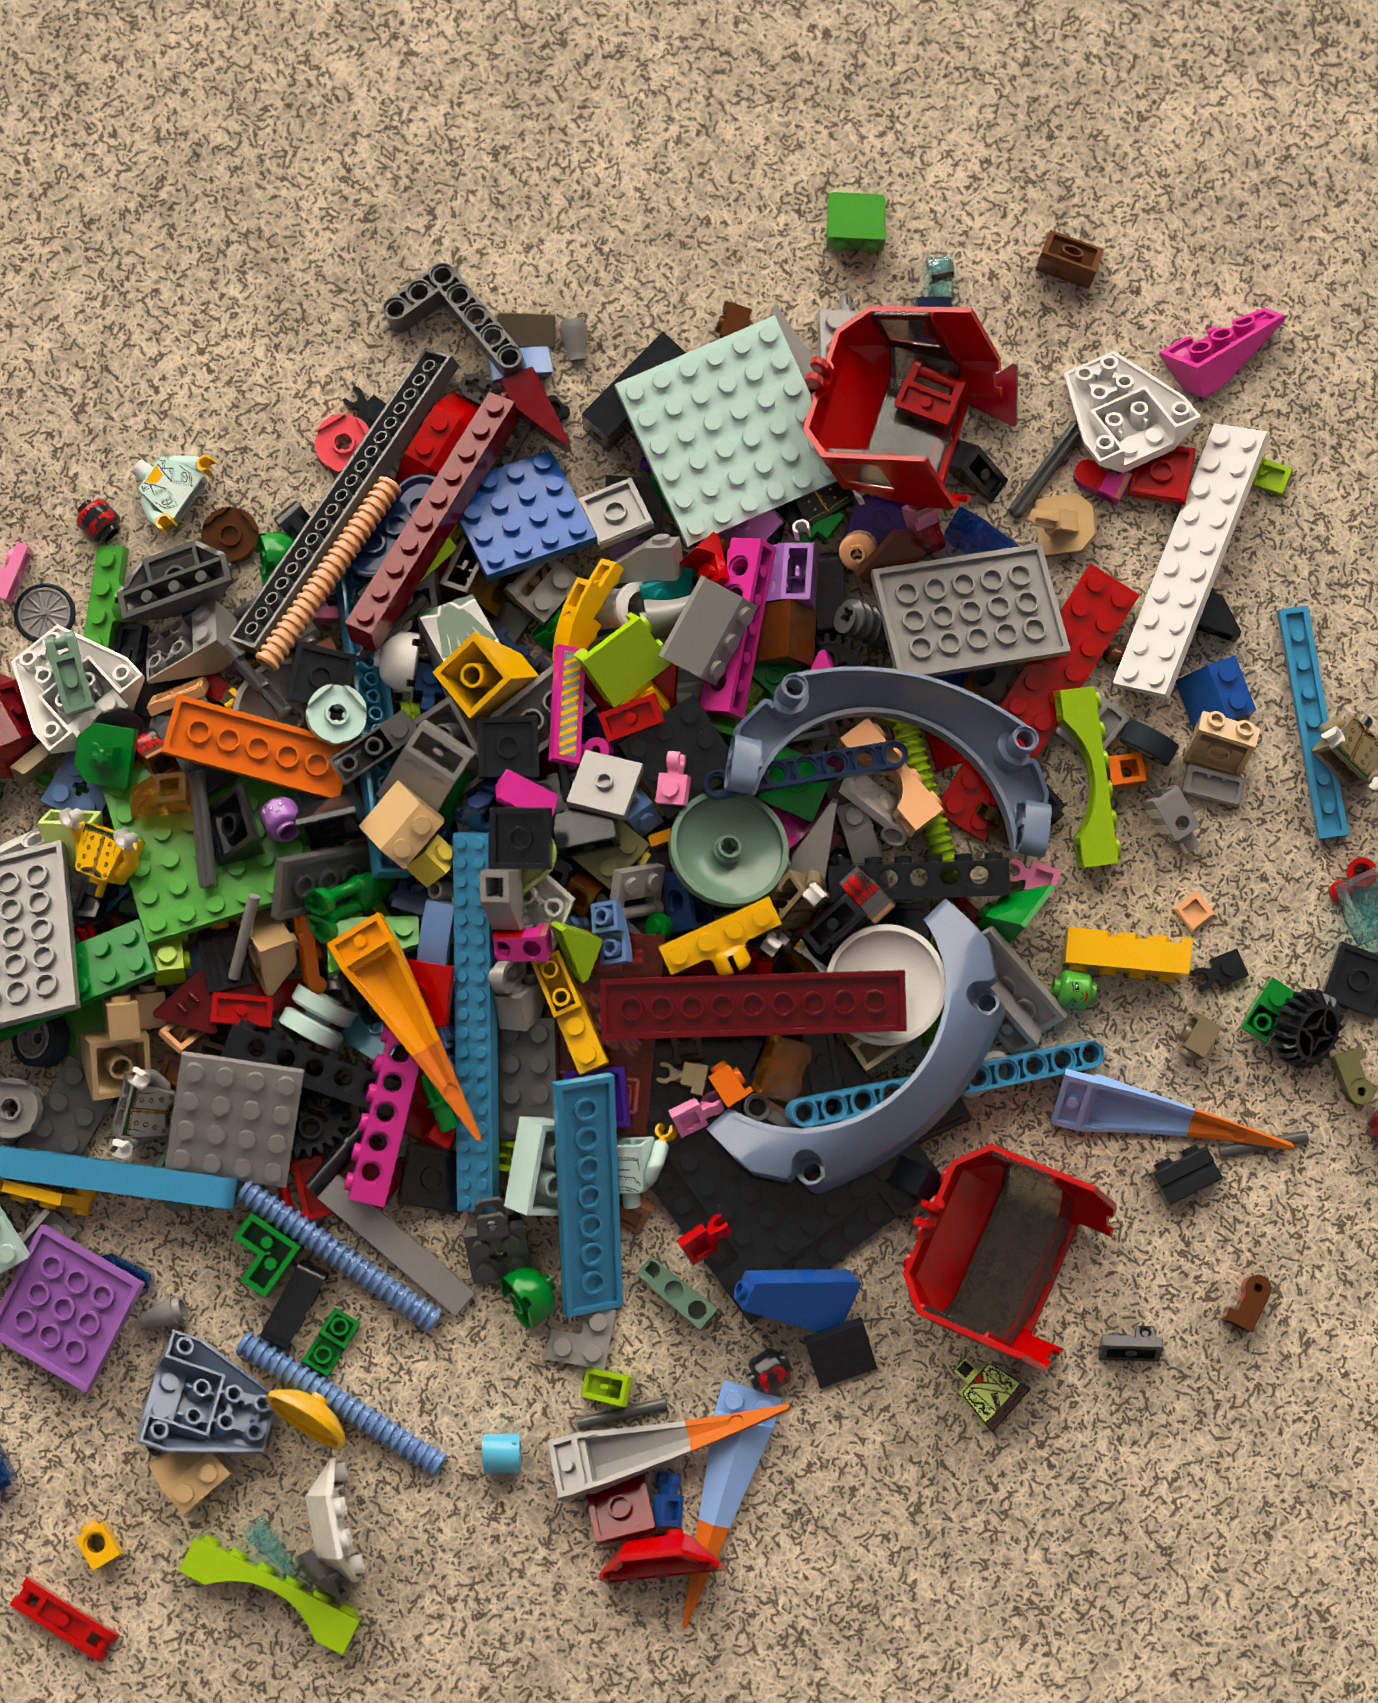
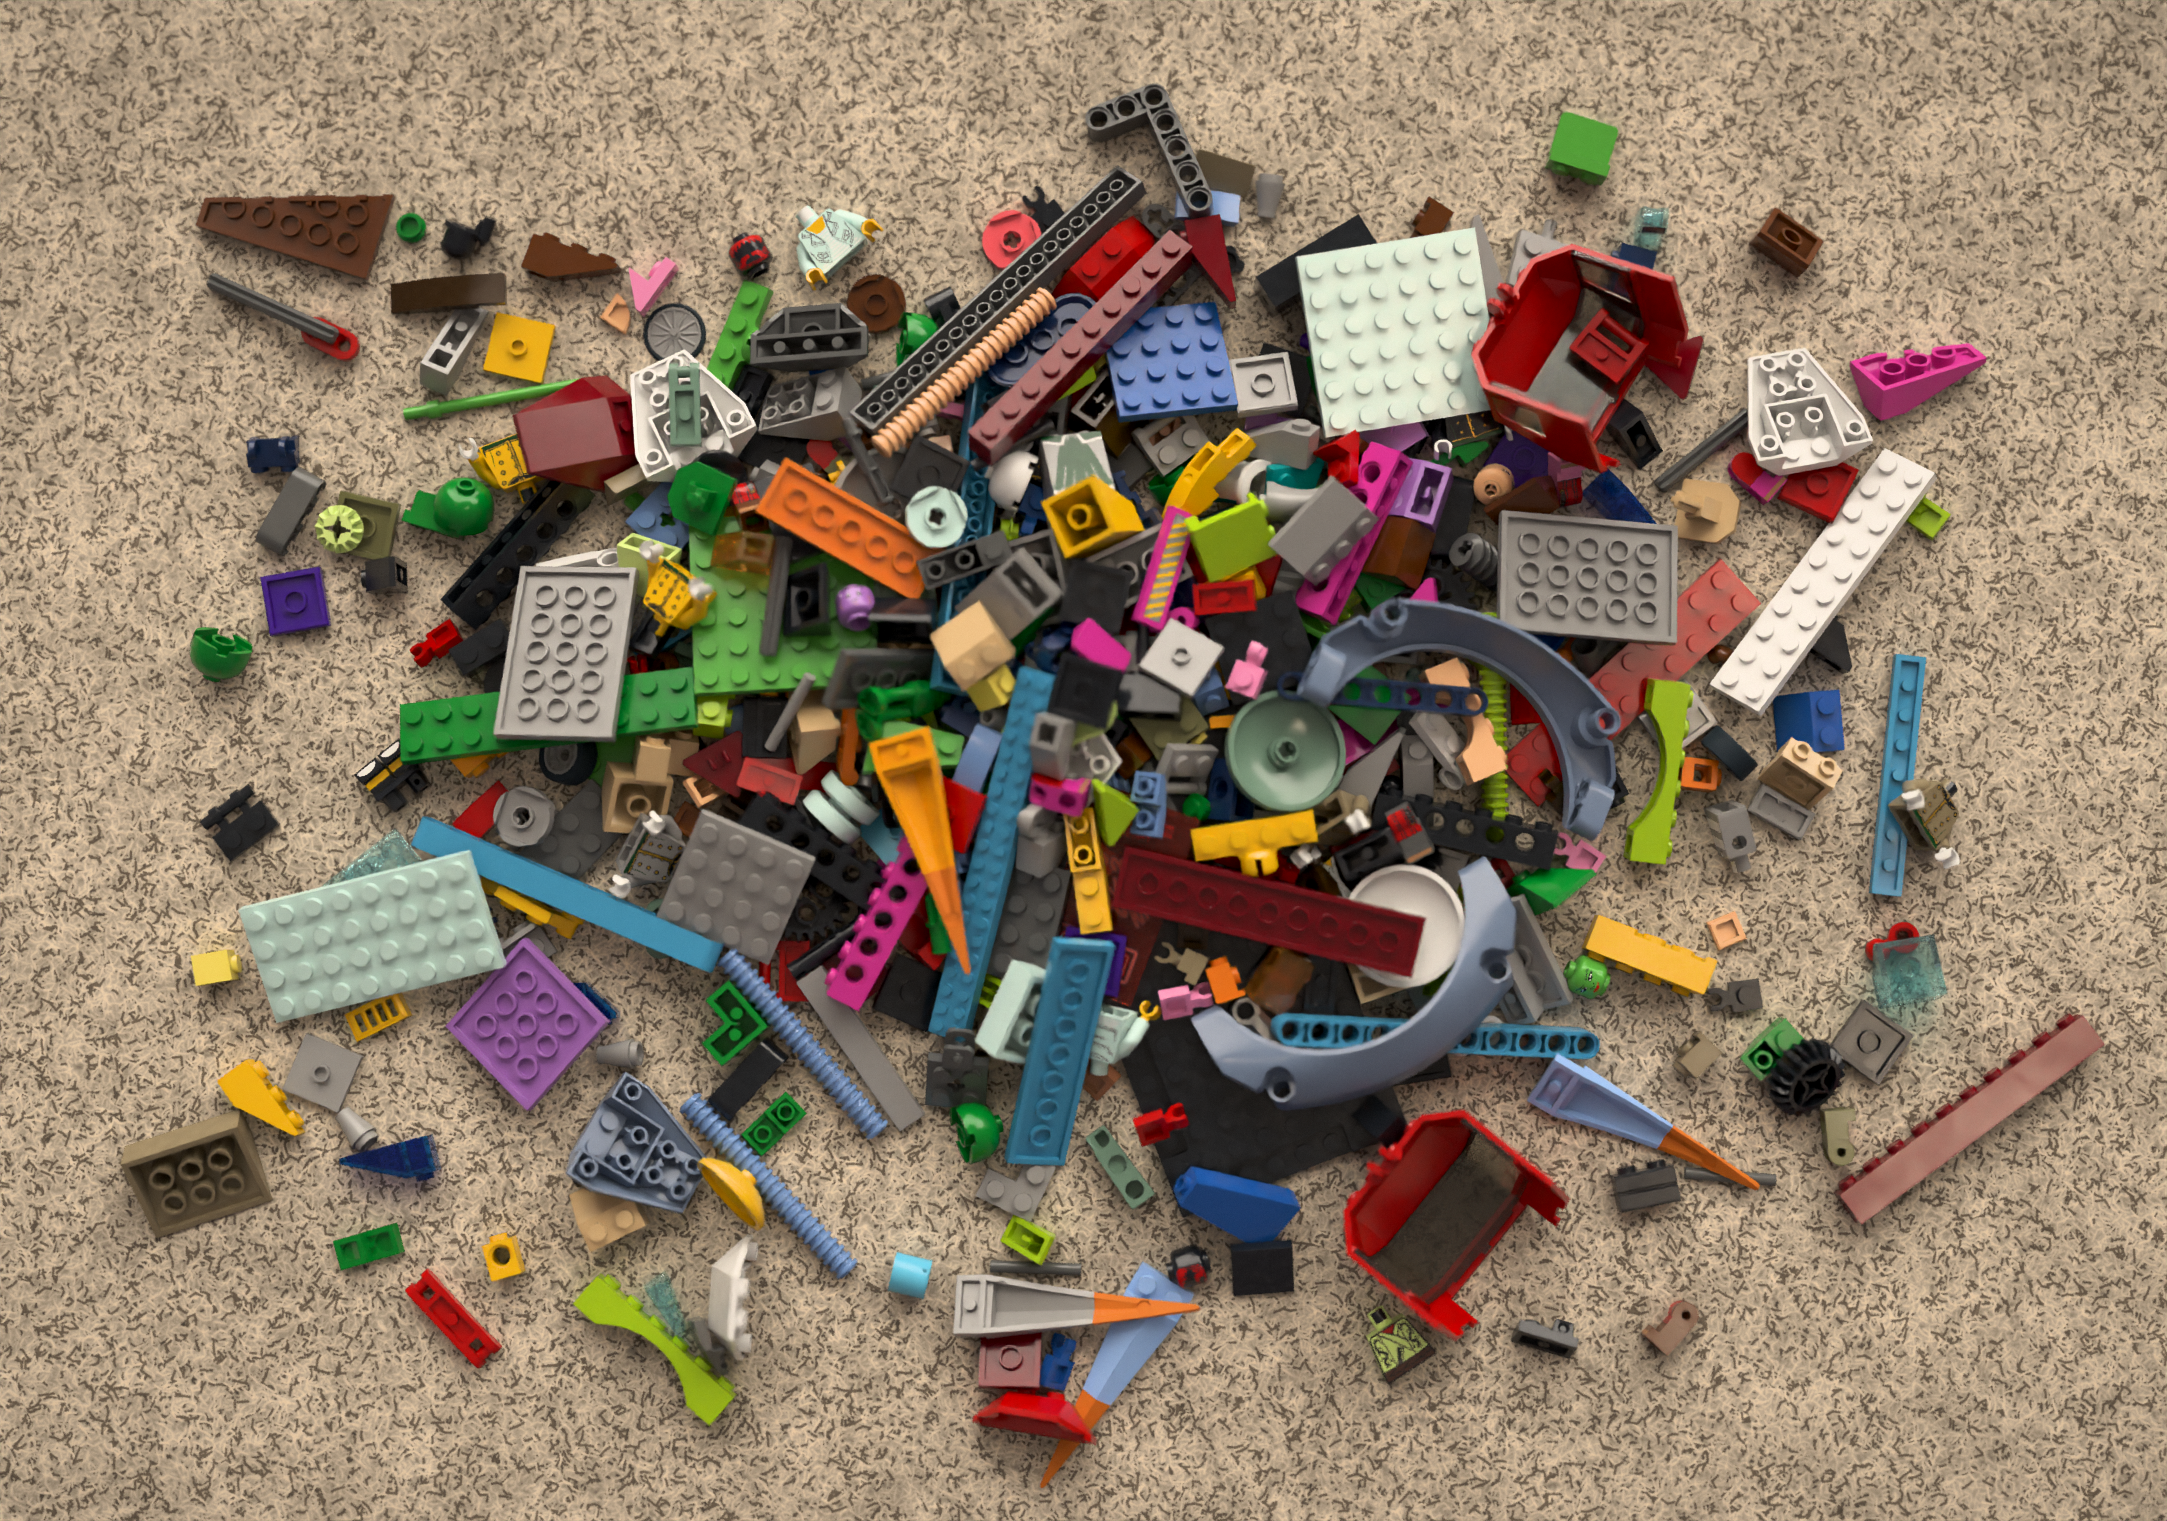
camera: 20 degrees right, 5 degrees up
(165, 700) = (775, 454): light nougat plate -> none

